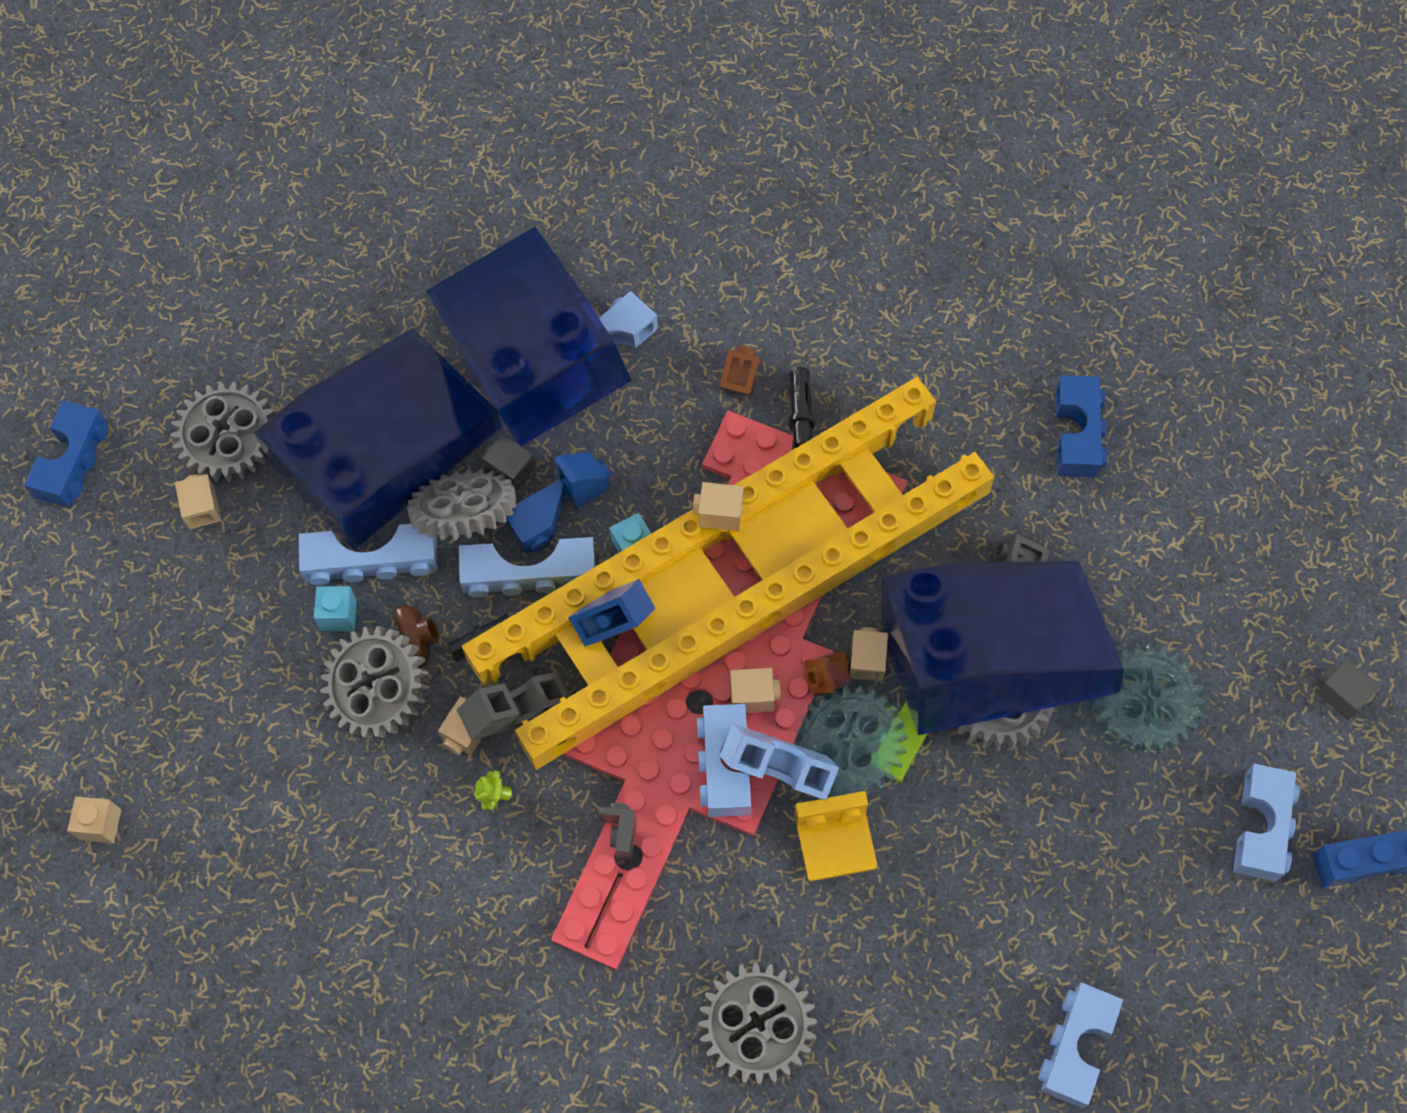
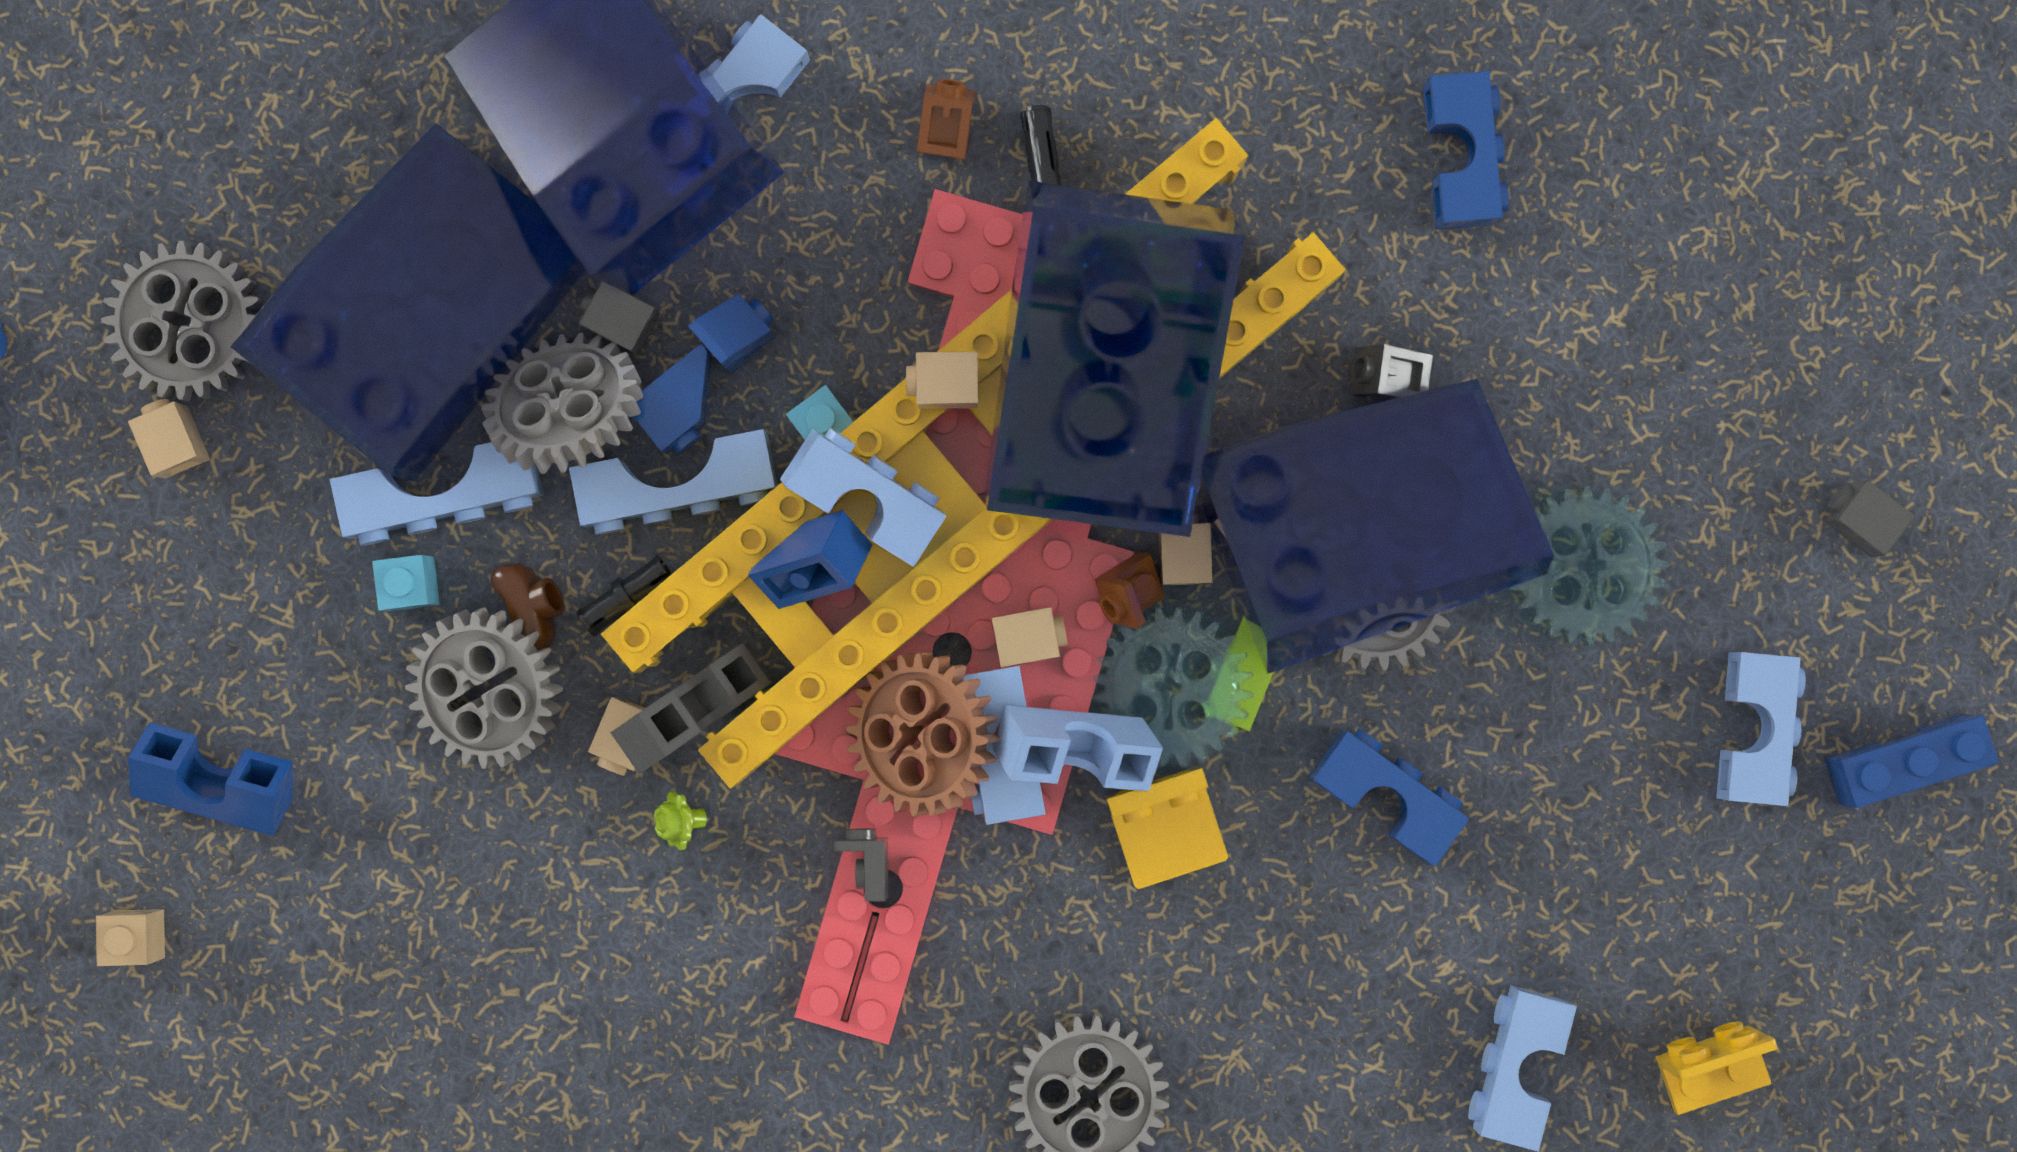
camera: 10 degrees left, 20 degrees up
(149, 712) = (173, 773): none -> blue arch
(671, 742) = (947, 767): none -> nougat gear
(680, 588) = (828, 469): none -> light blue arch
(832, 499) = (1112, 358): none -> clear blue slope
(976, 813) = (1426, 819): none -> blue arch
(1225, 1065) = (1715, 1067): none -> yellow bracket

